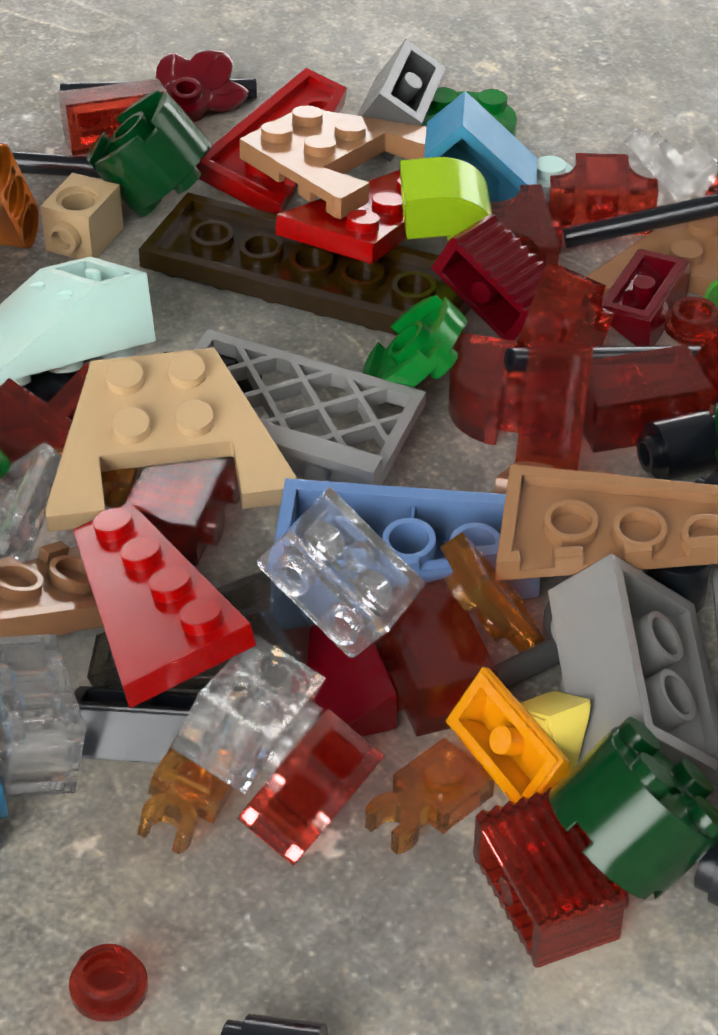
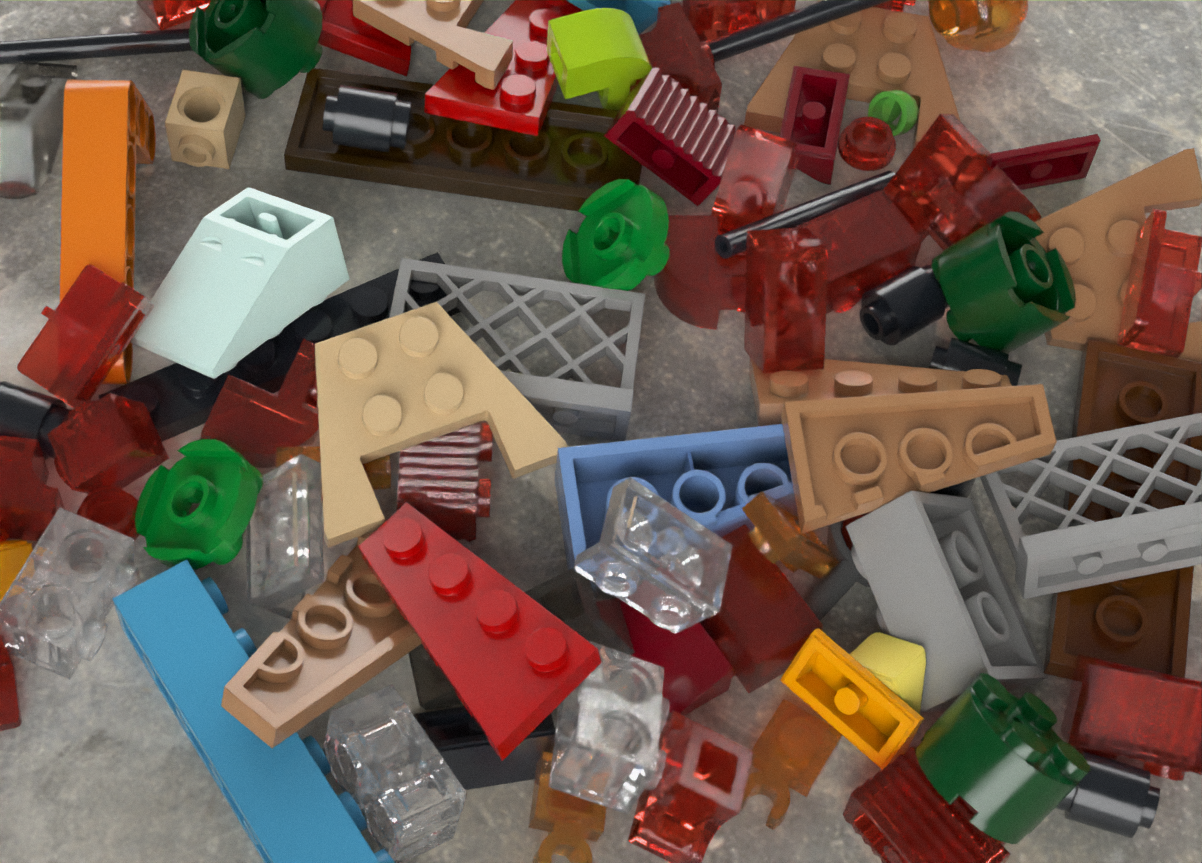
camera: 20 degrees left, 15 degrees up
(218, 226) = (367, 119): none -> black brick

